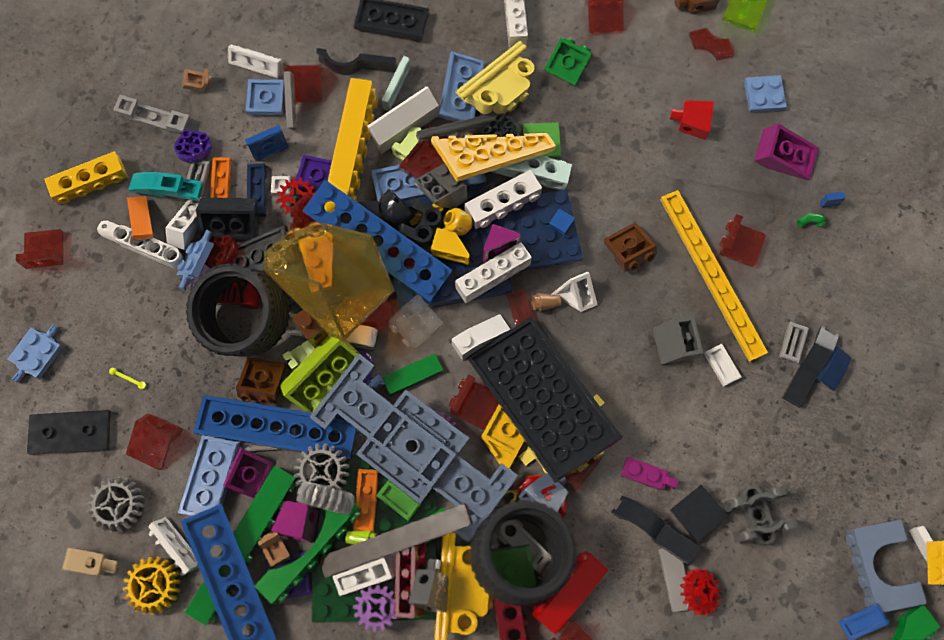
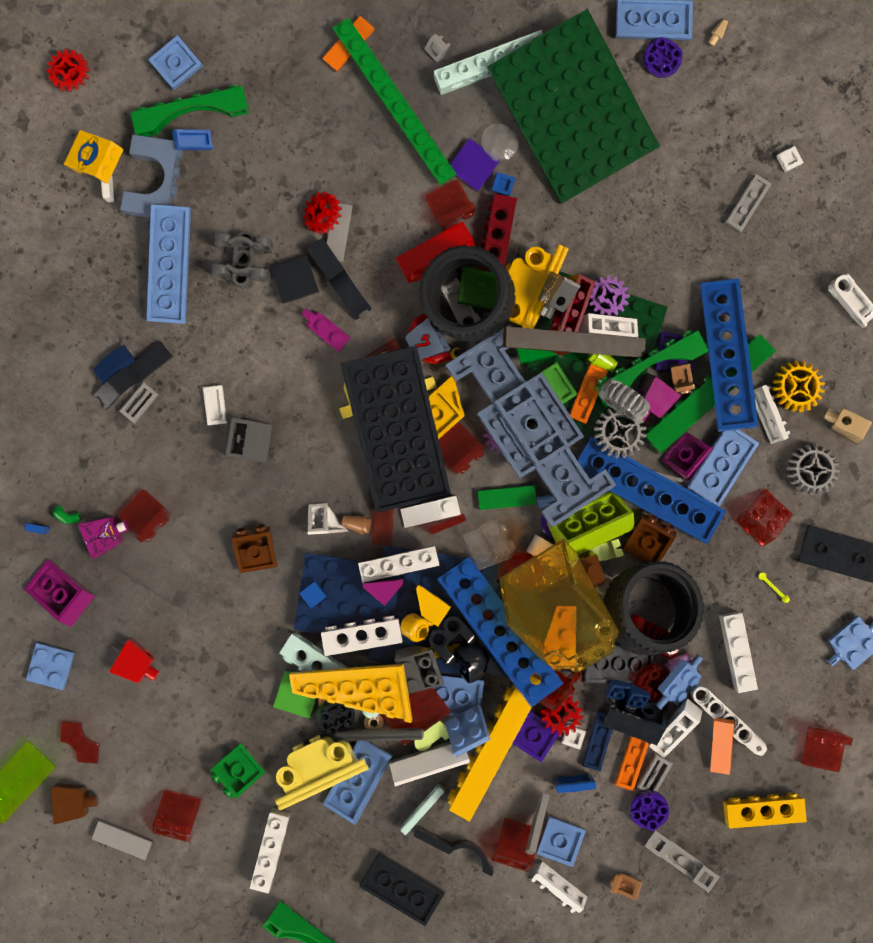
camera: 155 degrees left, 15 degrees up
(146, 306) = (738, 652): none -> white brick
(165, 184) = (688, 773): teal slope -> none
(236, 231) = (629, 693): none -> dark blue slope
(378, 152) = (467, 730): none -> medium blue plate
(467, 323) = (447, 524): none -> clear red tile
(714, 276) = (186, 495): yellow plate -> none
(772, 213) = (102, 535): none -> magenta torso
(829, 483) = (168, 264): none -> medium blue plate

